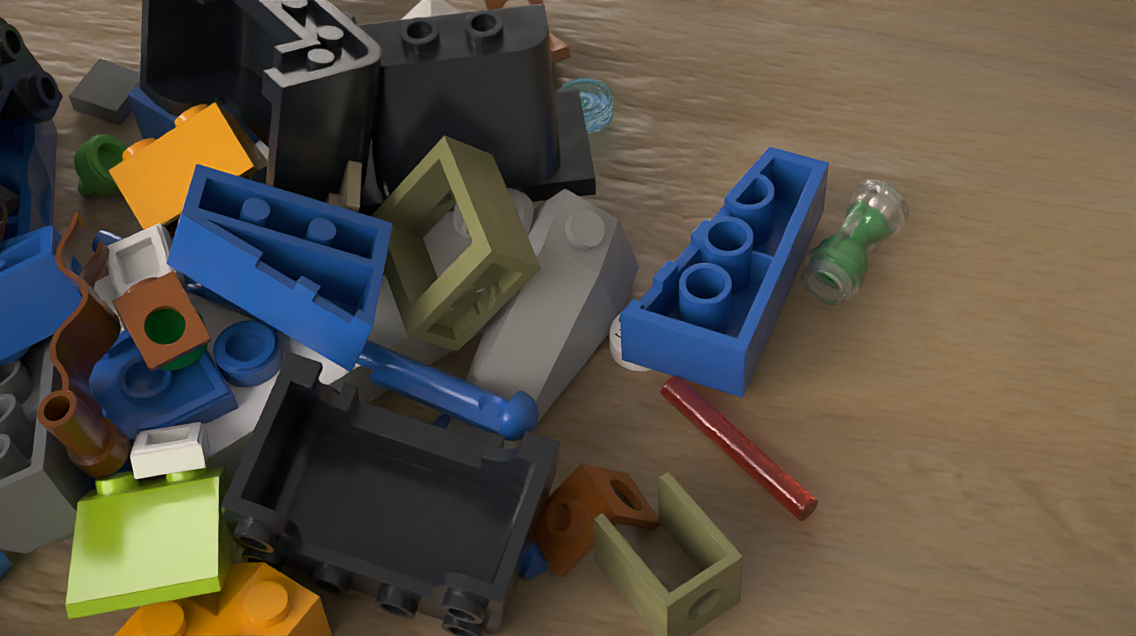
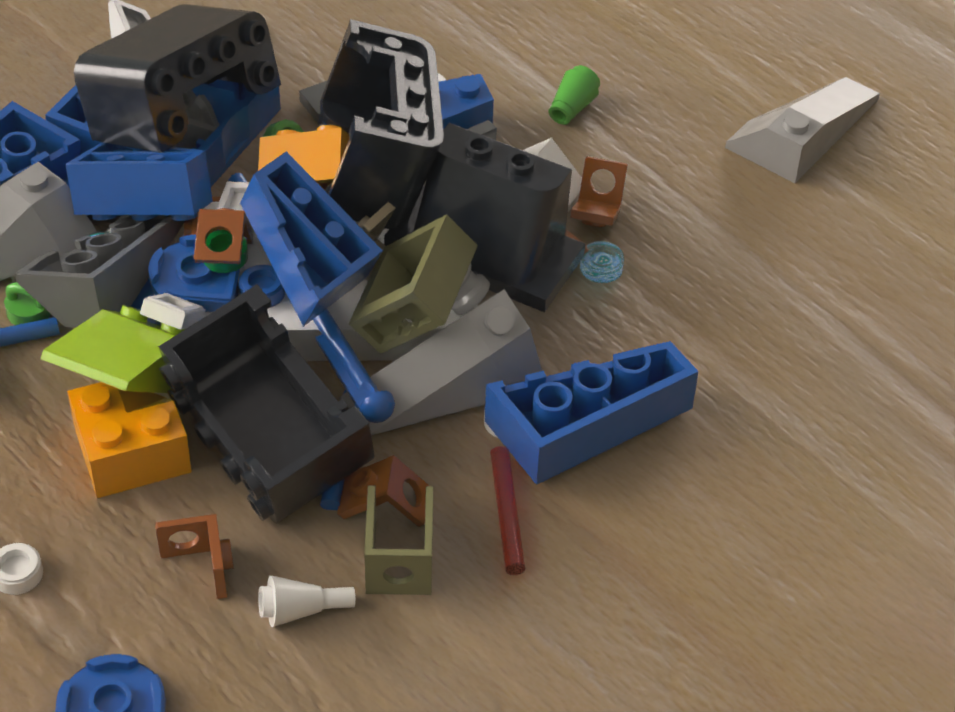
camera: 30 degrees right, 5 degrees down
(77, 345) = (161, 225): reddish brown flag -> none
(840, 262) = (673, 439): clear piece -> none

